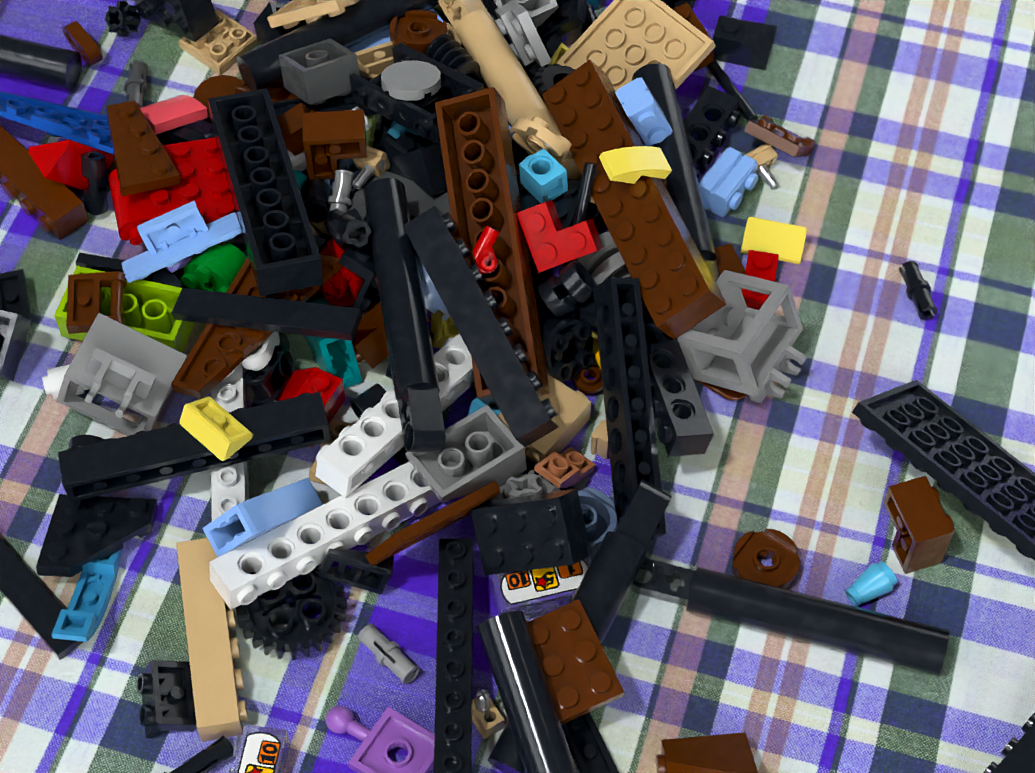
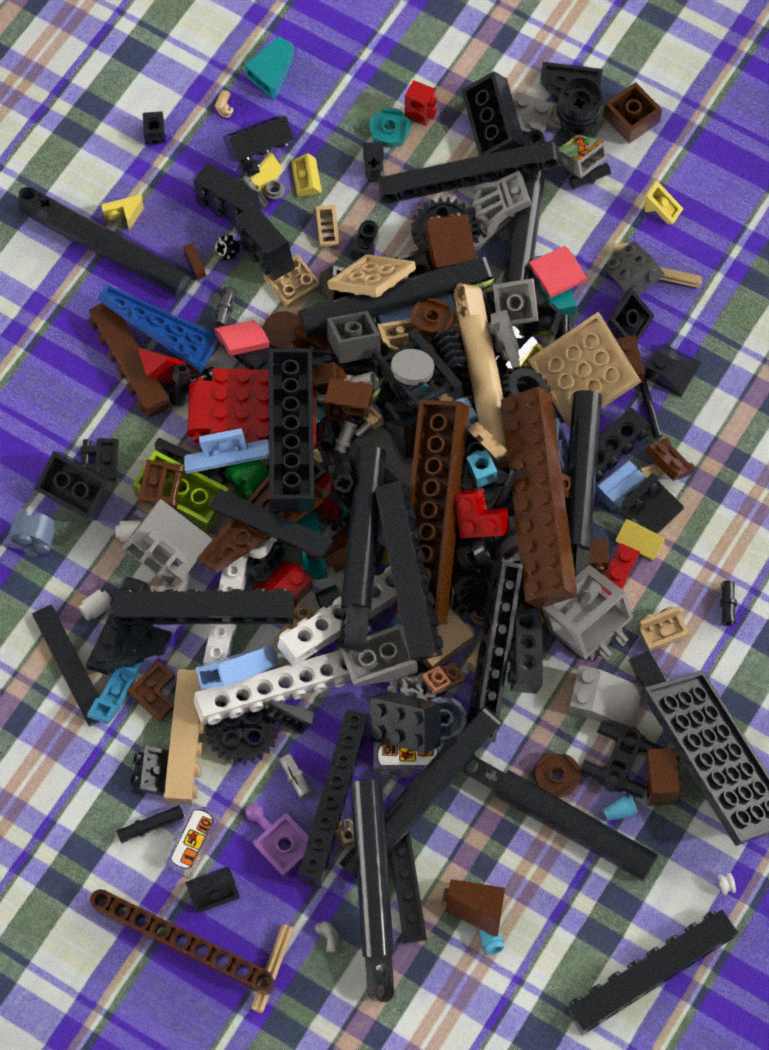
camera: 15 degrees right, 10 degrees up
(34, 488) = (95, 604): none -> white brick
(138, 152) = (213, 377): reddish brown wing -> none
(140, 587) = (148, 691): none -> reddish brown plate
(214, 427) = (218, 600): light yellow slope -> none
(432, 524) = (344, 699): reddish brown tile -> none
(484, 252) = (424, 519): red arm -> none
(573, 662) = (405, 817): reddish brown plate -> none
(630, 163) = (543, 479): light yellow slope -> none
(644, 112) = (567, 433): light blue brick -> none
(775, 192) = (652, 505): none -> black bracket
(795, 444) = (605, 697): none -> light grey slope
(841, 396) = (646, 669): none -> black slope
(843, 339) = (662, 628): none -> tan bracket
(847, 519) = (620, 759): none -> black piece

